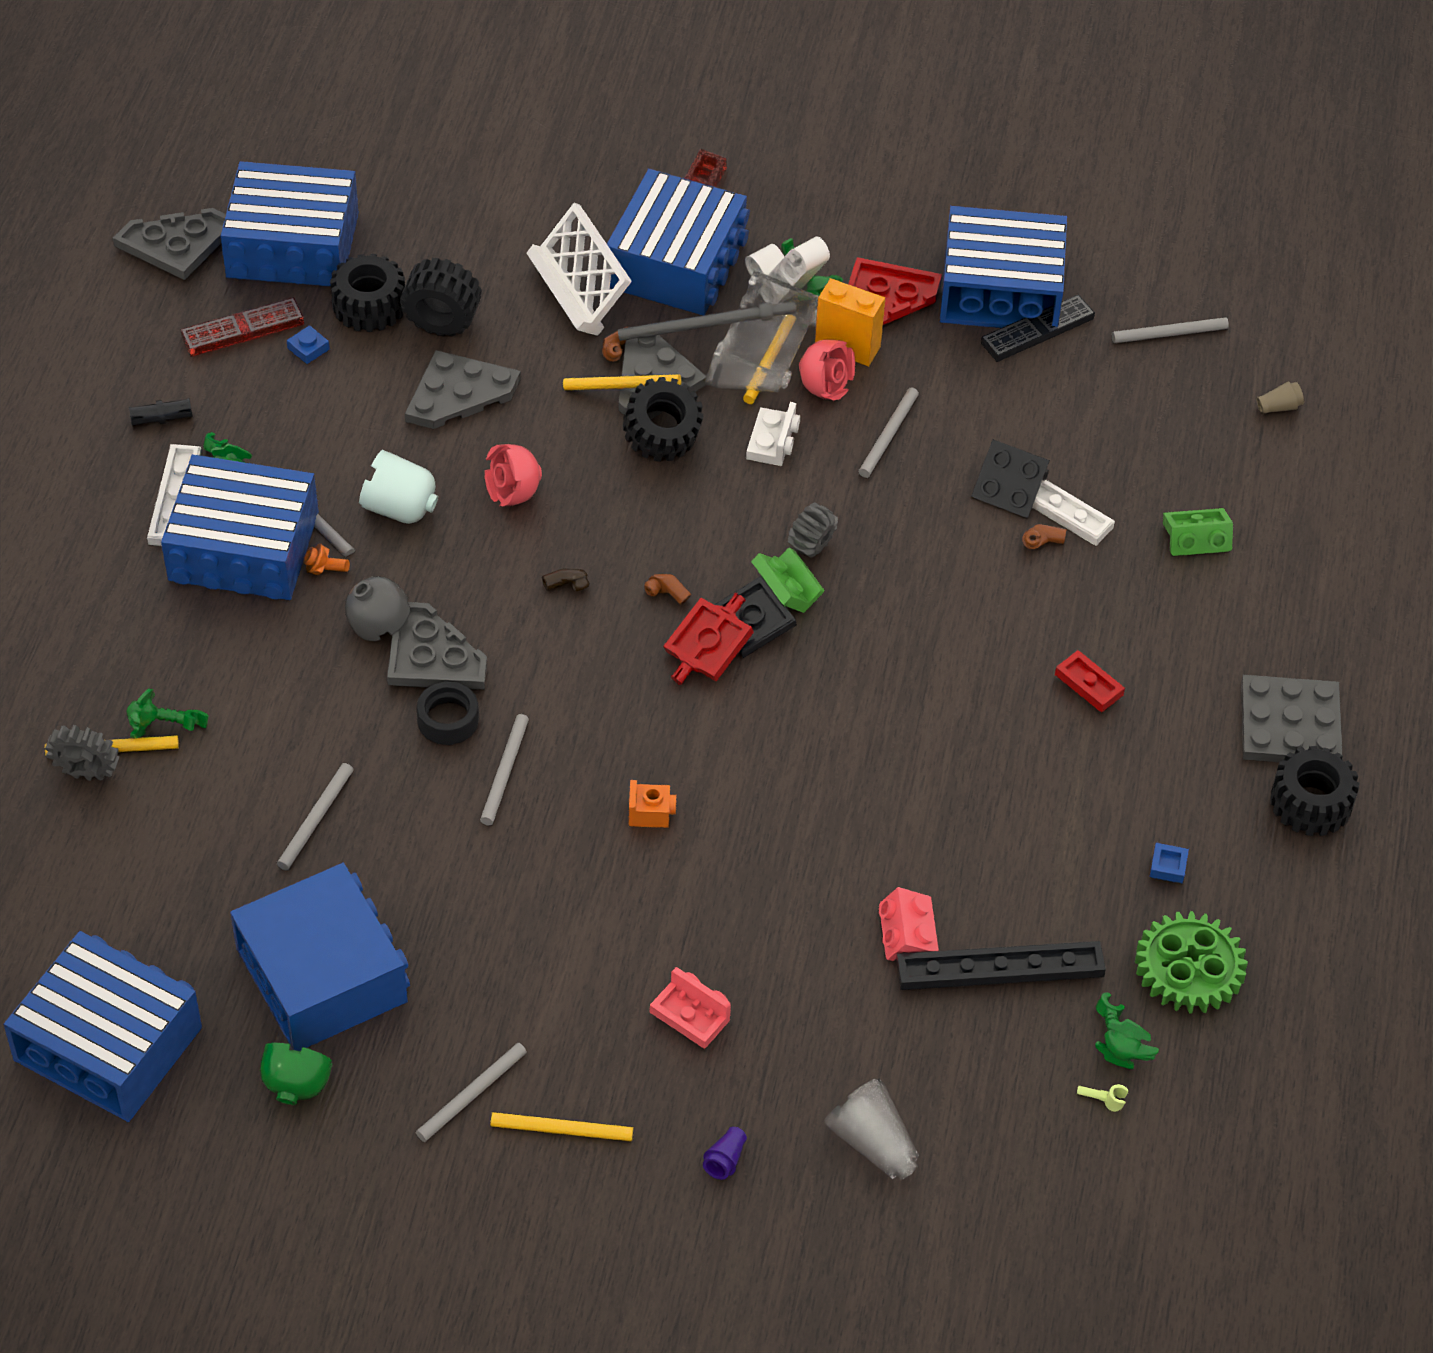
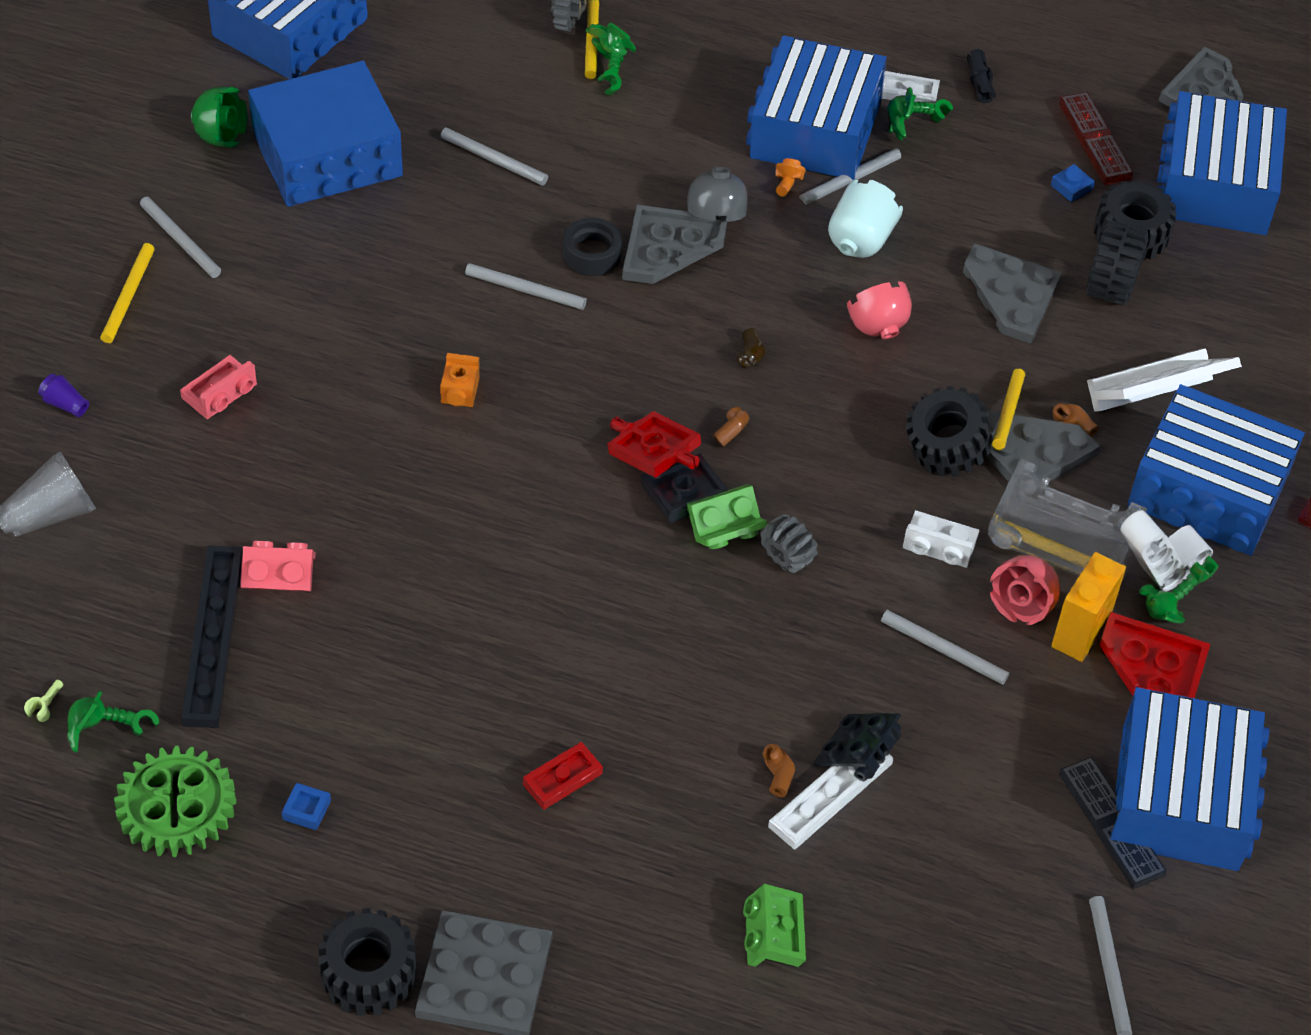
camera: 95 degrees right, 0 degrees up
(764, 312) = (1097, 523): dark grey bar -> none

